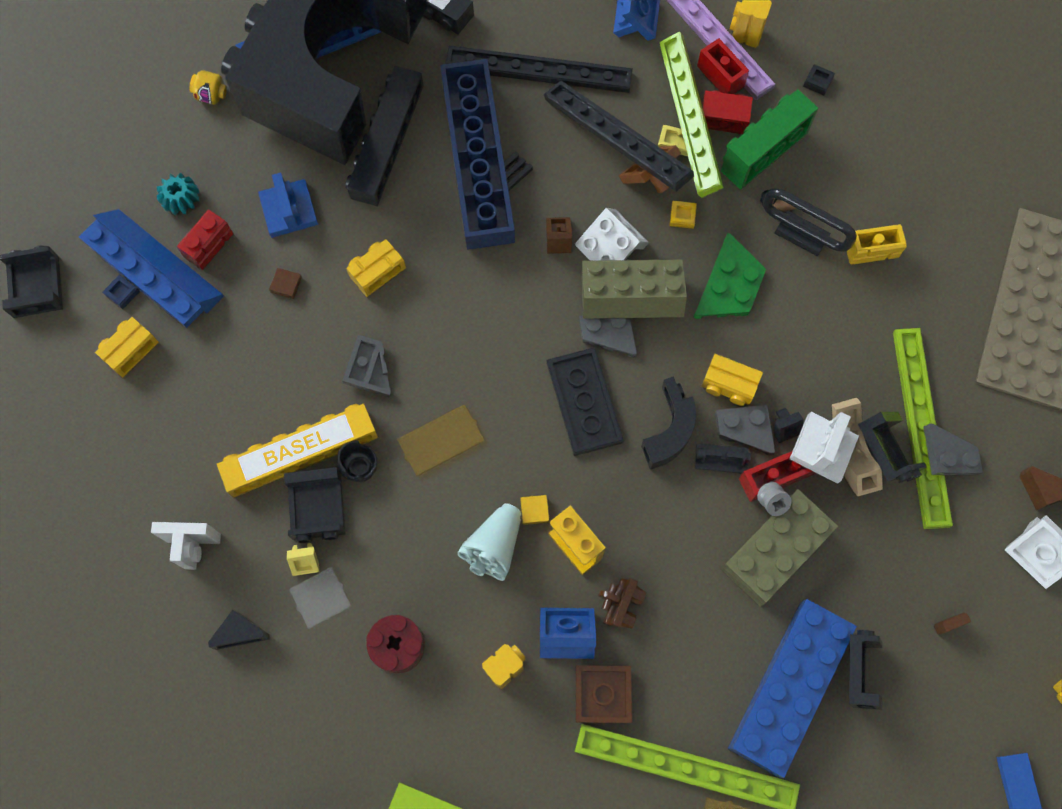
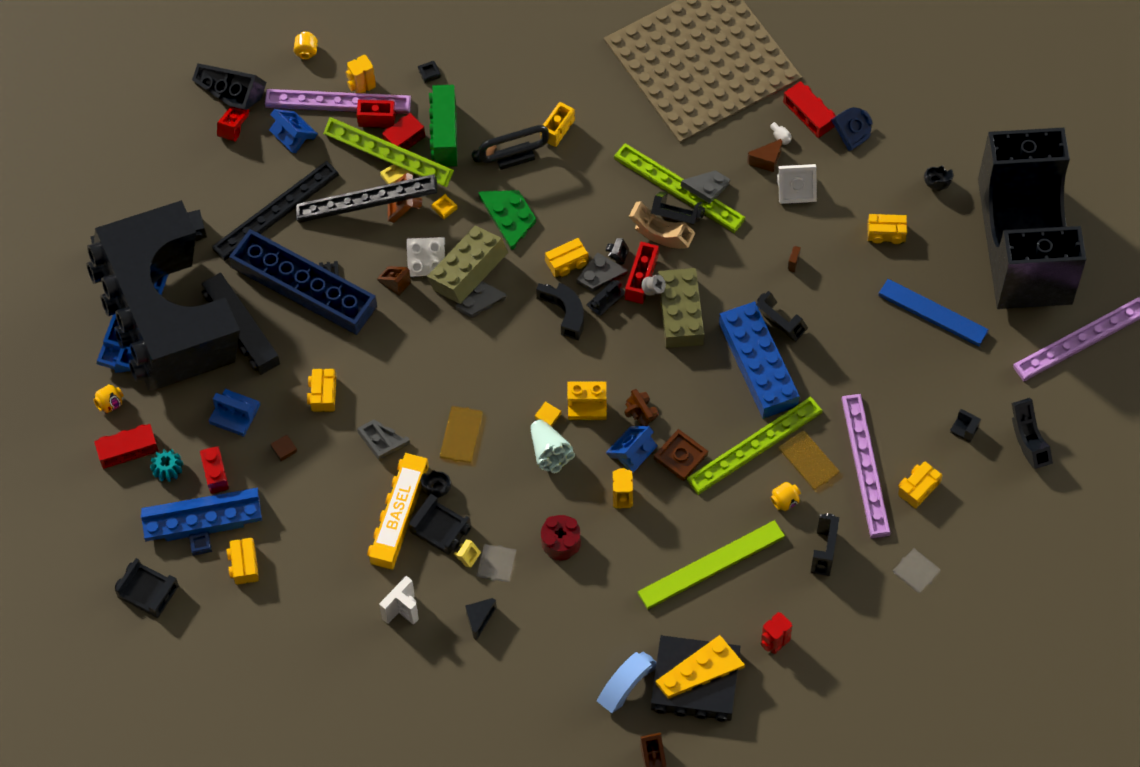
camera: 50 degrees left, 10 degrees down
(171, 142) = (126, 446): none -> red brick
(584, 401) = (508, 342): black tile -> none
(825, 445) = (647, 237): white bracket -> none

